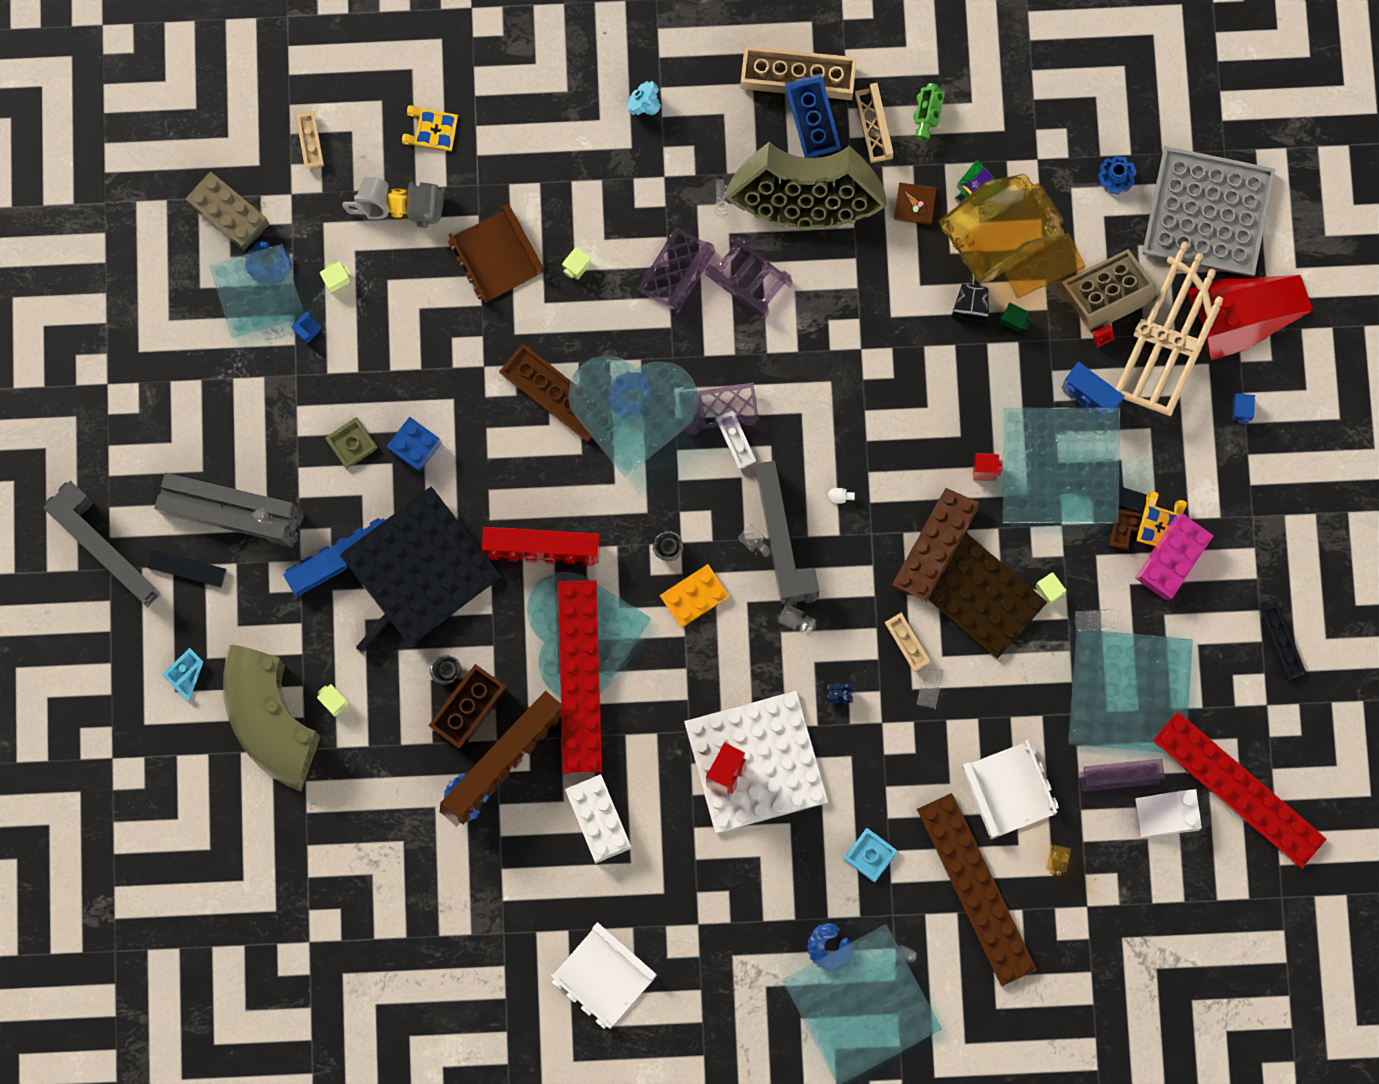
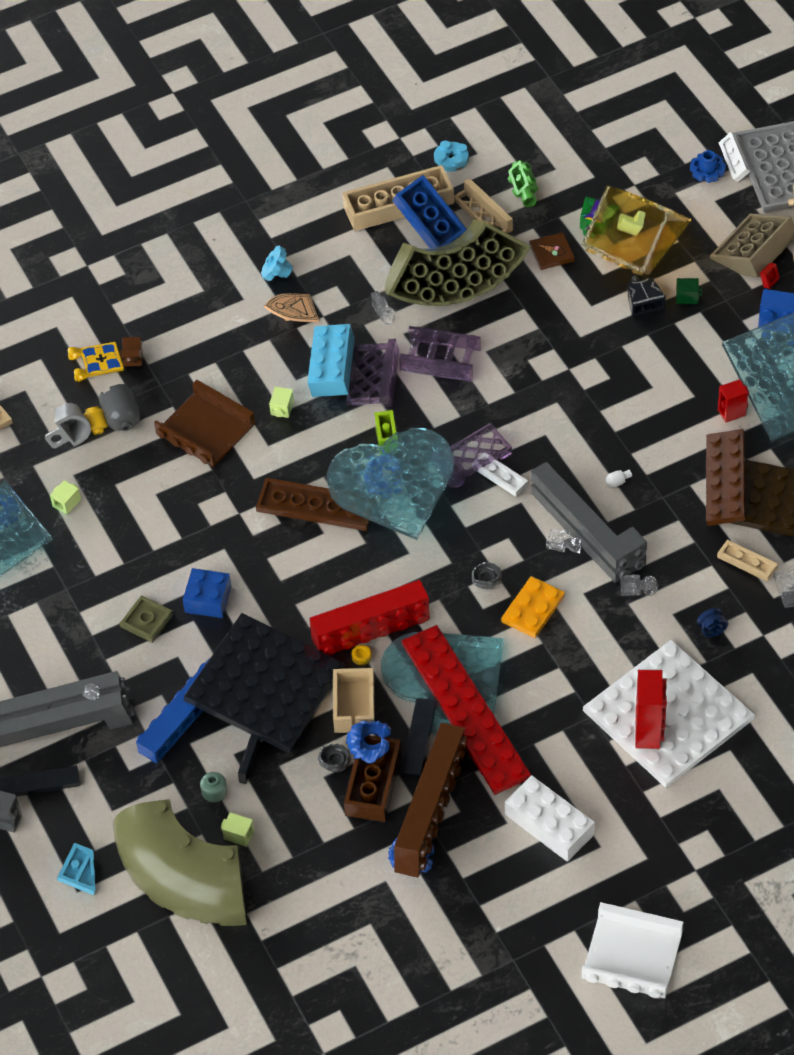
camera: 25 degrees left, 25 degrees down
(306, 327) = (57, 548): blue panel -> none
(336, 650) = (213, 787): none -> sand green head
(466, 138) = (132, 351): none -> reddish brown brick
(466, 670) = (360, 748): none -> blue piece
(488, 621) = (352, 697): none -> tan piece
(520, 572) = (361, 655): none -> yellow tile
(527, 684) = (419, 737): none -> black tile
(638, 157) = (293, 307): none -> light nougat shield
(643, 238) = (331, 360): none -> medium azure brick
(653, 345) = (384, 426): none -> lime brick
(878, 50) = (459, 152): none -> medium azure plate
(1004, 210) = (631, 225): none -> yellowish green panel
(1045, 267) = (688, 251): clear yellow tile -> none
(1149, 175) = (734, 157): none -> white plate

